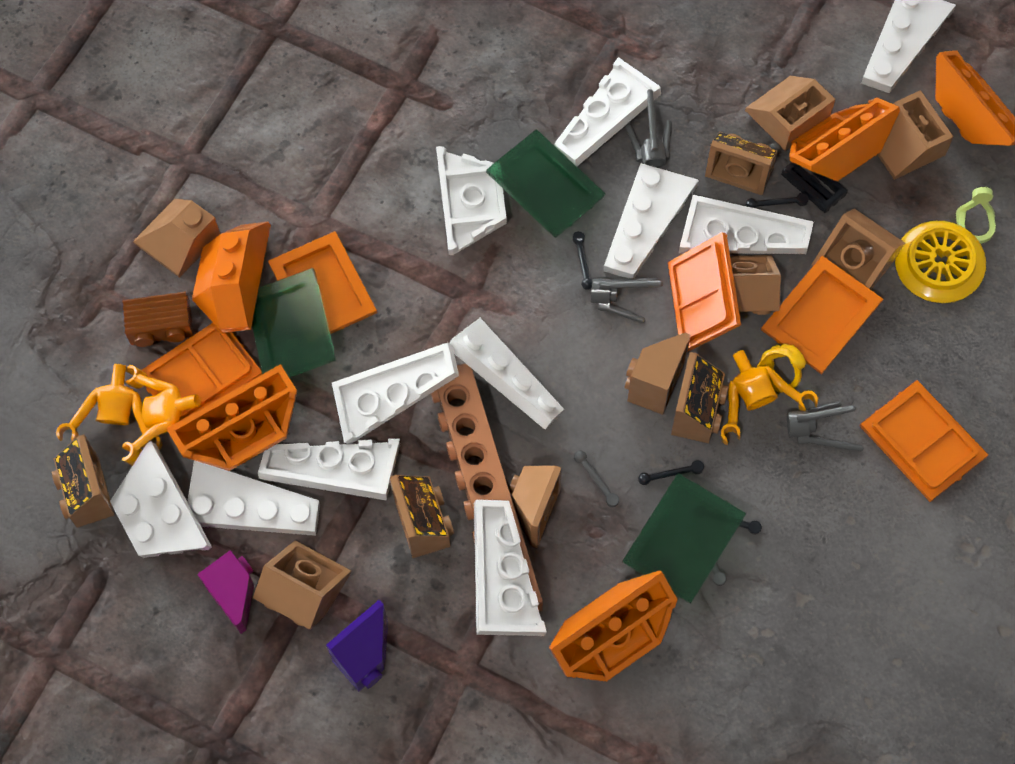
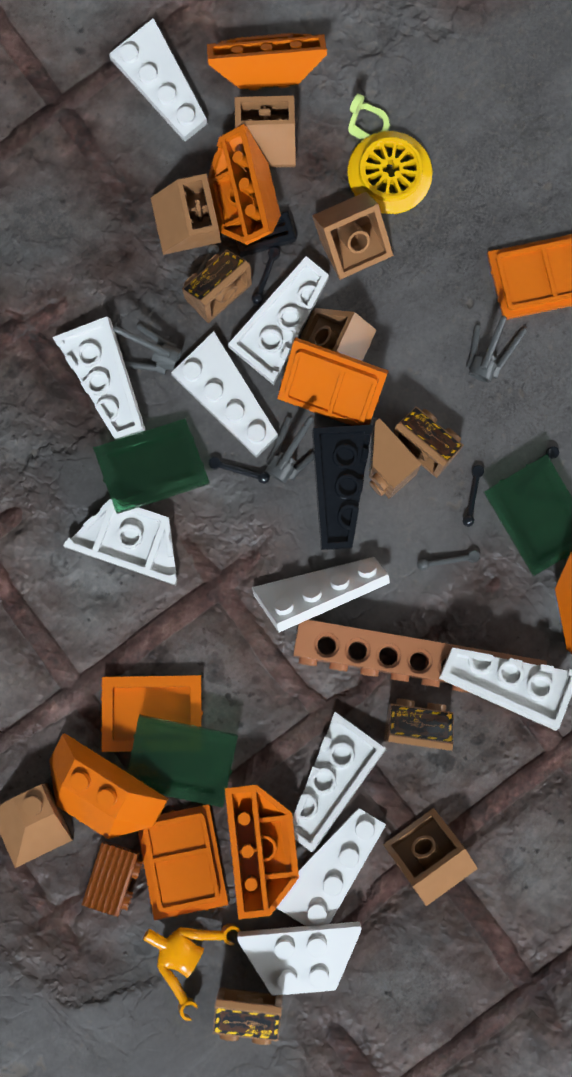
camera: 65 degrees left, 15 degrees up
(157, 410) = (209, 916): light orange piece -> none
(231, 587) = (406, 921): magenta slope -> none
(361, 647) = (518, 832): dark purple slope -> none
(387, 390) = (289, 707): white wing -> none
(534, 498) = (452, 623): medium nougat slope -> none
(612, 344) = (339, 475): none -> black wing
(757, 391) = (438, 387): light orange piece -> none
(785, 350) = (416, 346): yellow piece -> none
(822, 314) = (393, 296): orange piece -> none

